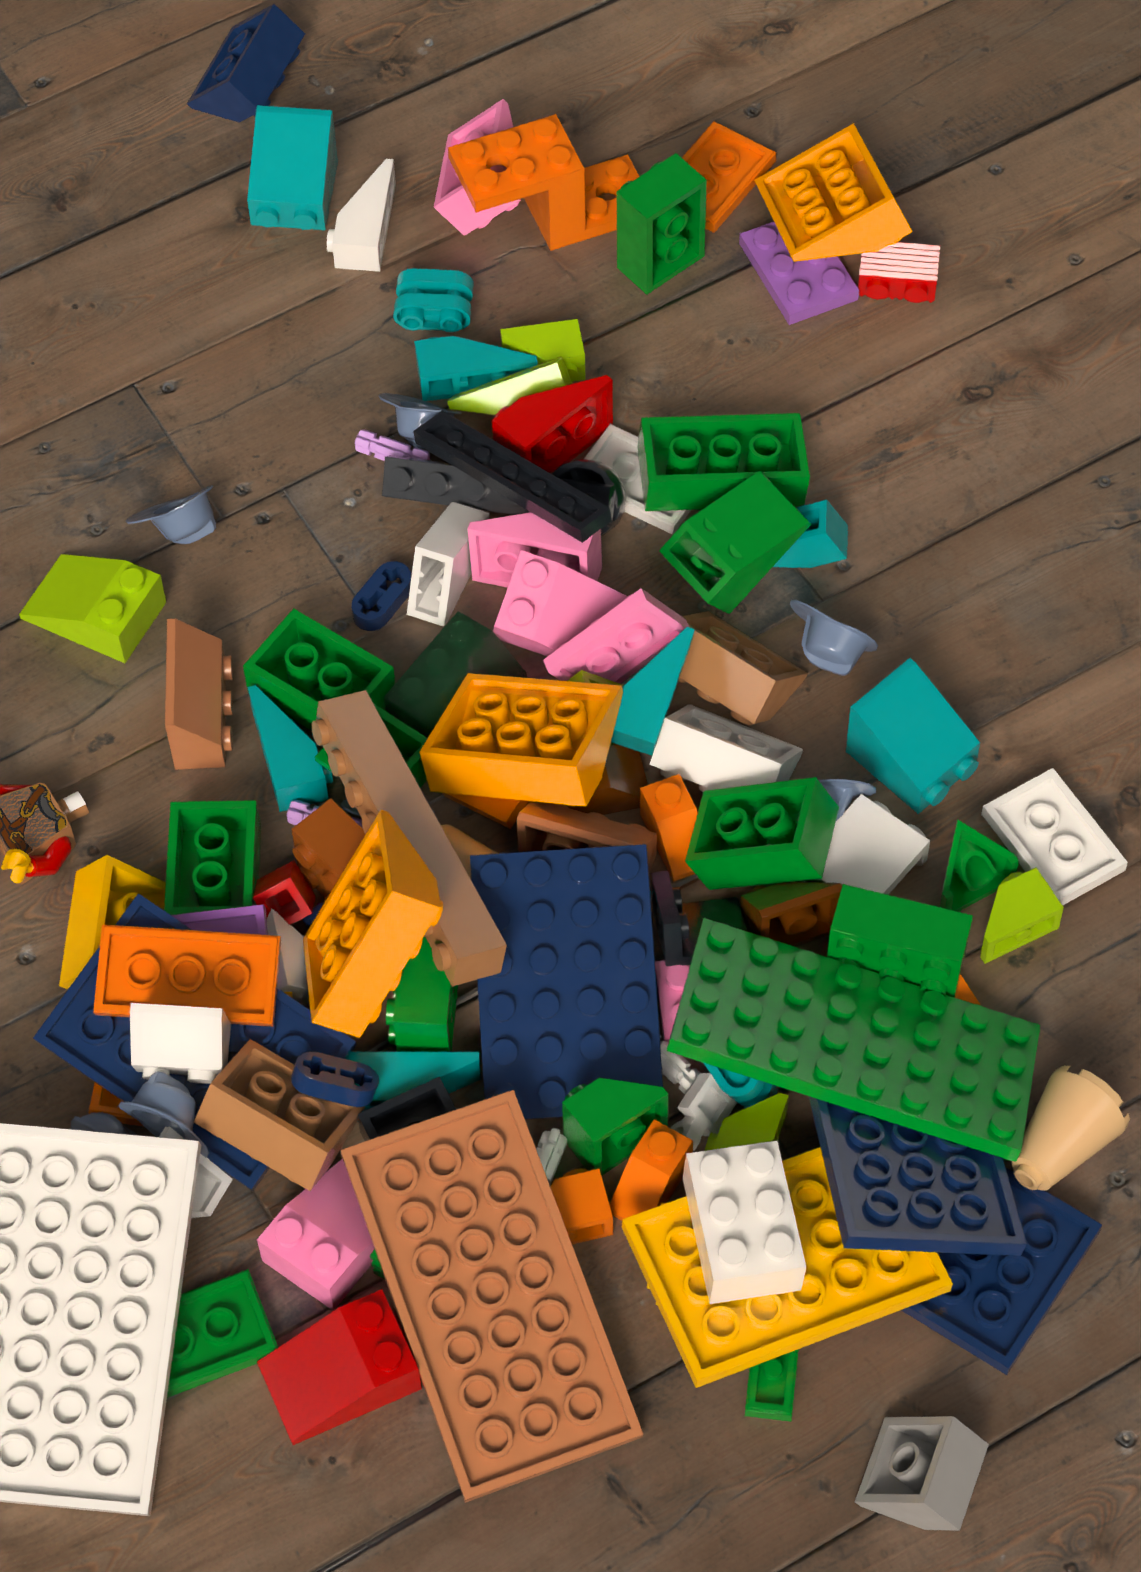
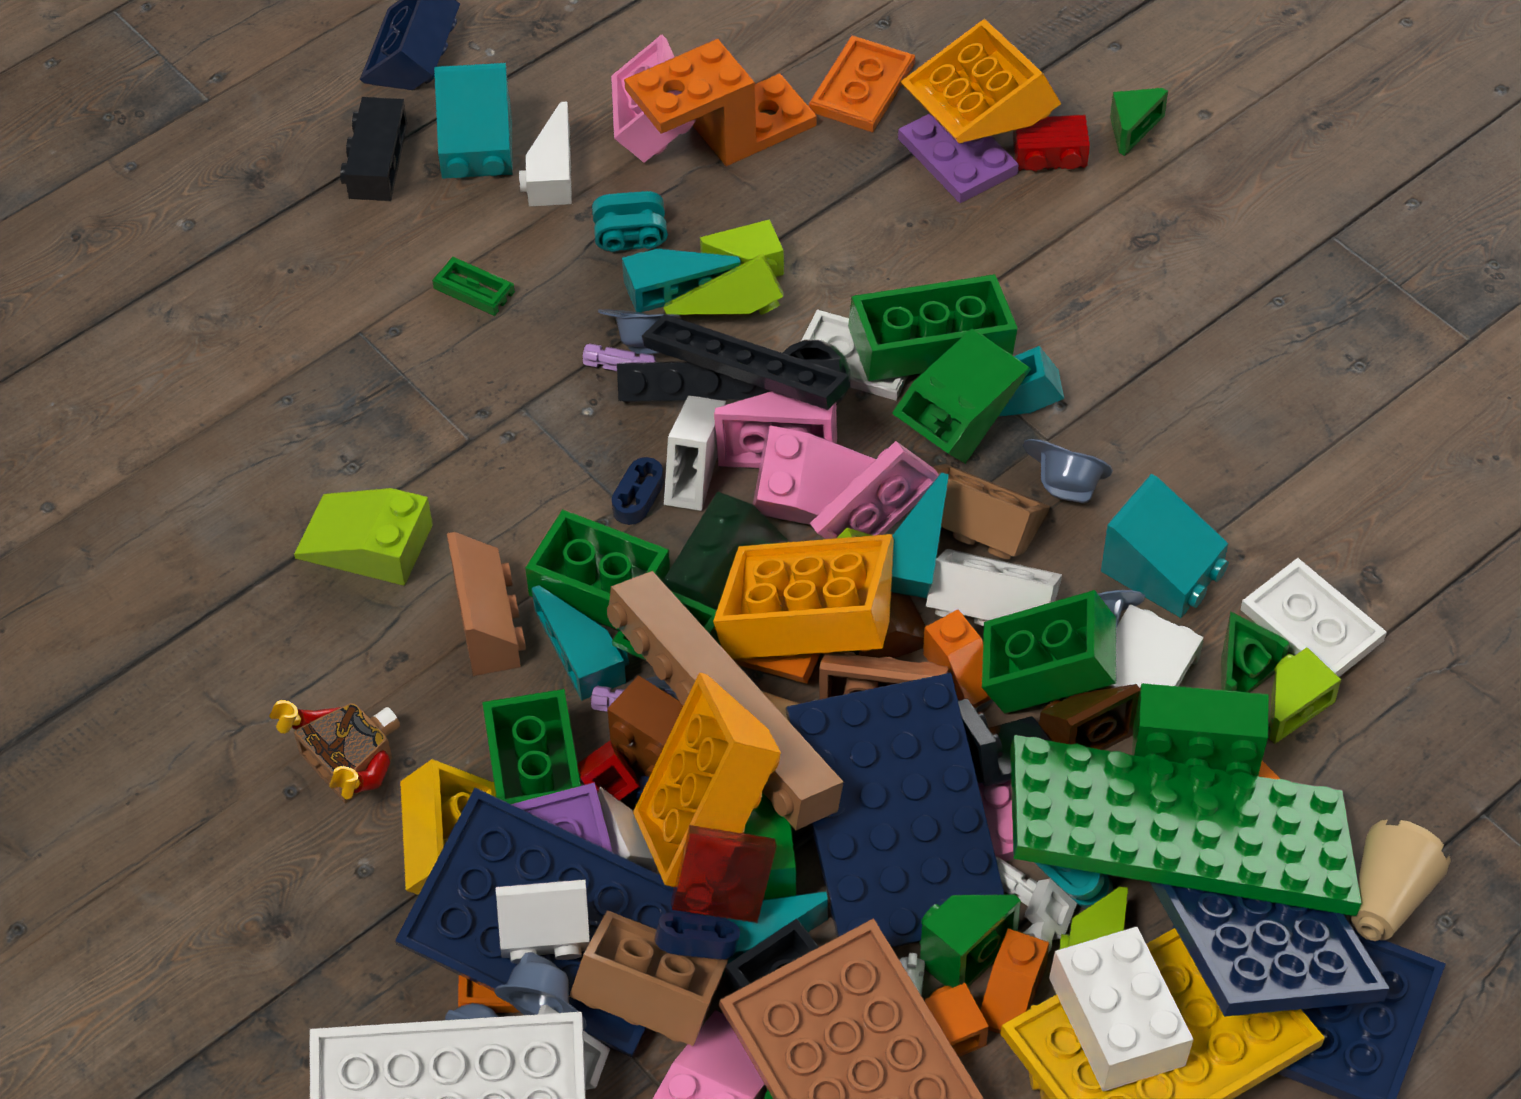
camera: 10 degrees left, 5 degrees down
(181, 519) = (435, 446): sand blue piece -> none
(185, 184) = (374, 149): none -> black brick
(188, 970) = (535, 851): orange tile -> none
(254, 353) = (469, 289): none -> green tile
(370, 1020) = (723, 874): none -> clear red plate
(556, 423) = (772, 310): red slope -> none
(661, 223) = (829, 125): green brick -> none
(998, 251) = (1136, 114): none -> green slope

